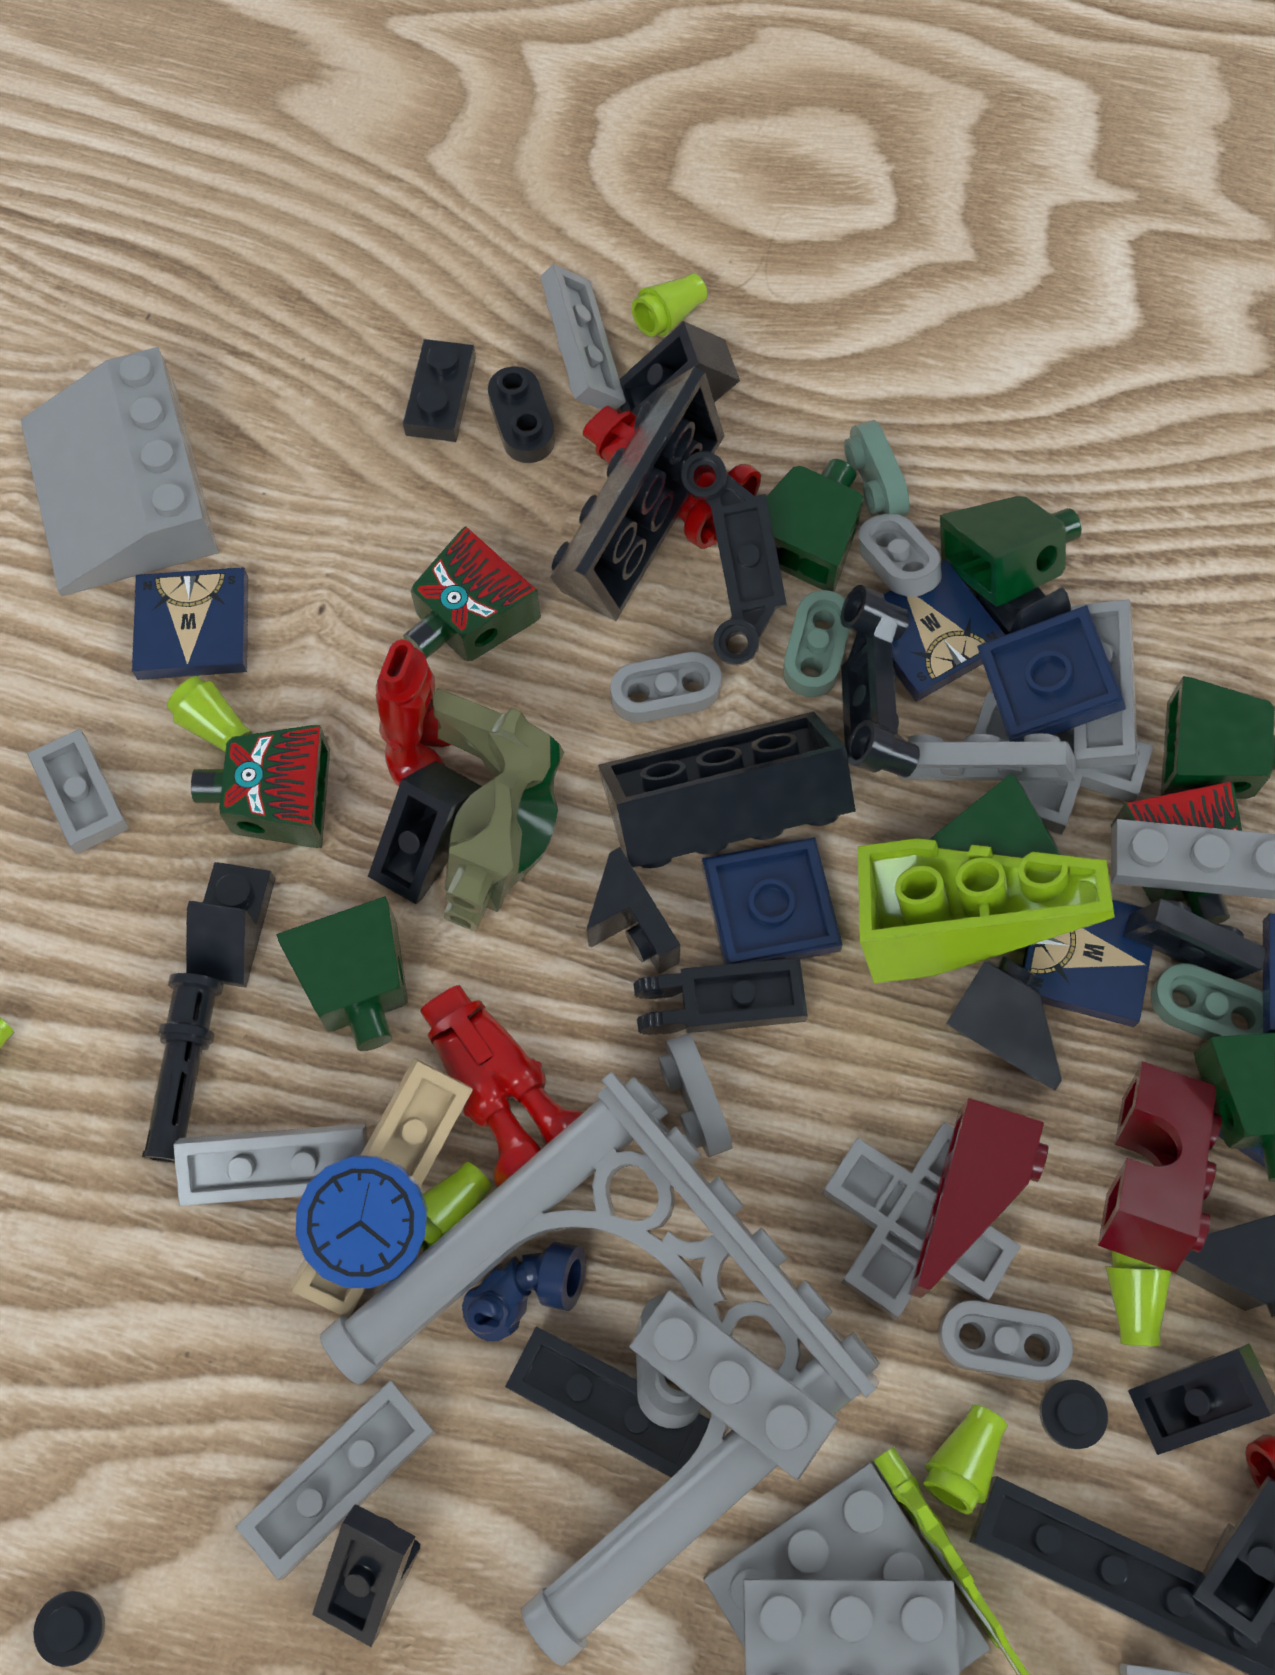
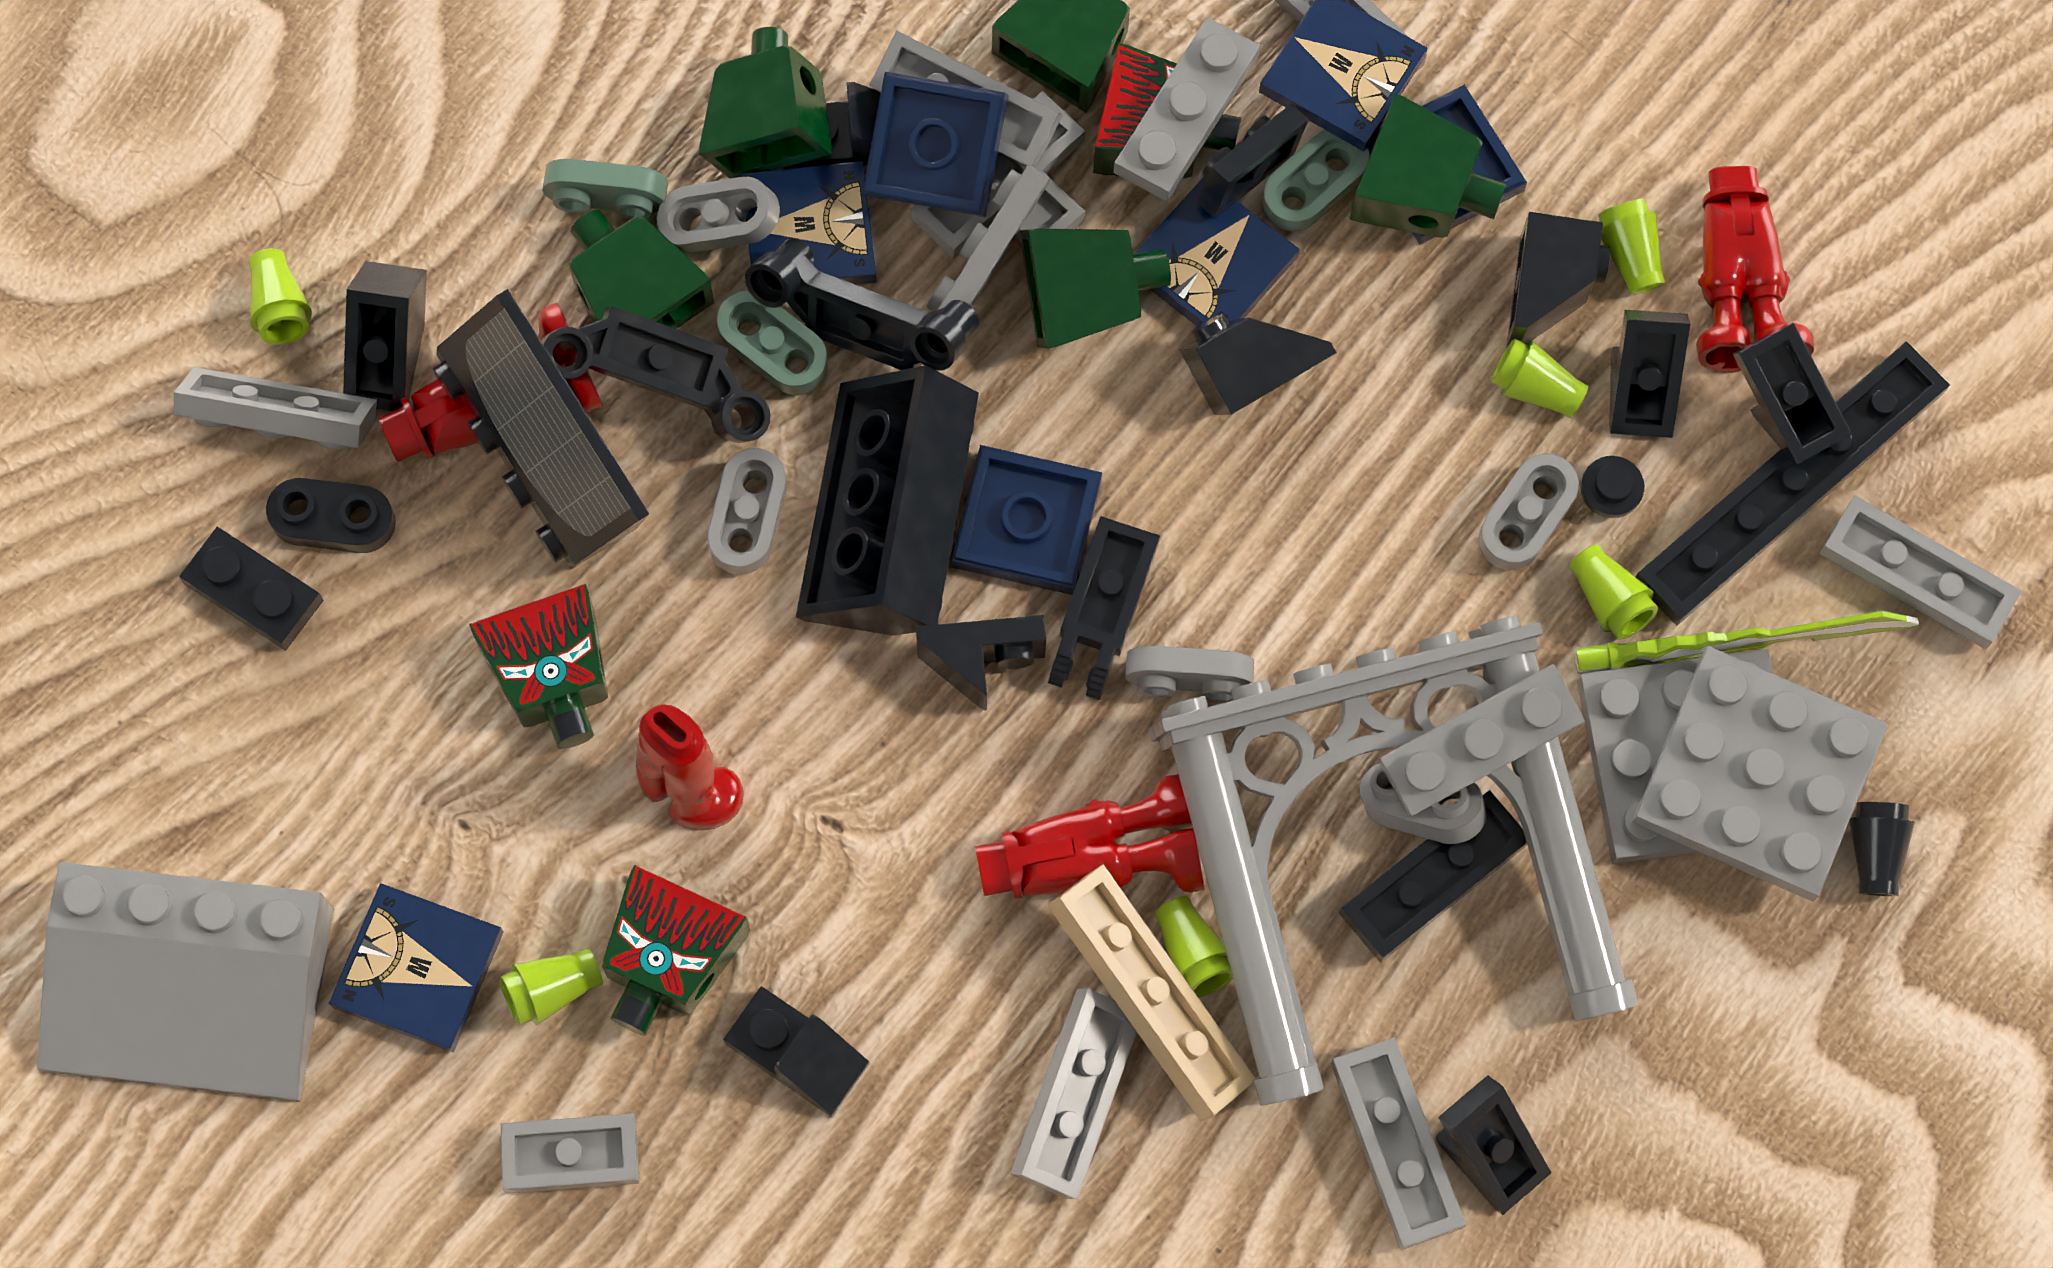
camera: 70 degrees left, 5 degrees up
(184, 1040) = (905, 1136): black pin -> none
(351, 969) = (912, 944): dark green torso -> none
(361, 1221) = (1184, 1016): blue tile -> none
(419, 830) = (794, 812): black slope -> none
(501, 1300) = (1306, 936): dark blue arm -> none
(506, 821) = (843, 733): olive hips -> none
(899, 1211) = (1392, 530): light grey plate -> none
(950, 908) = (1128, 346): lime wedge -> none
(984, 1170) = (1387, 454): dark red slope -> none
(1158, 1208) = (1411, 271): dark red arch -> none

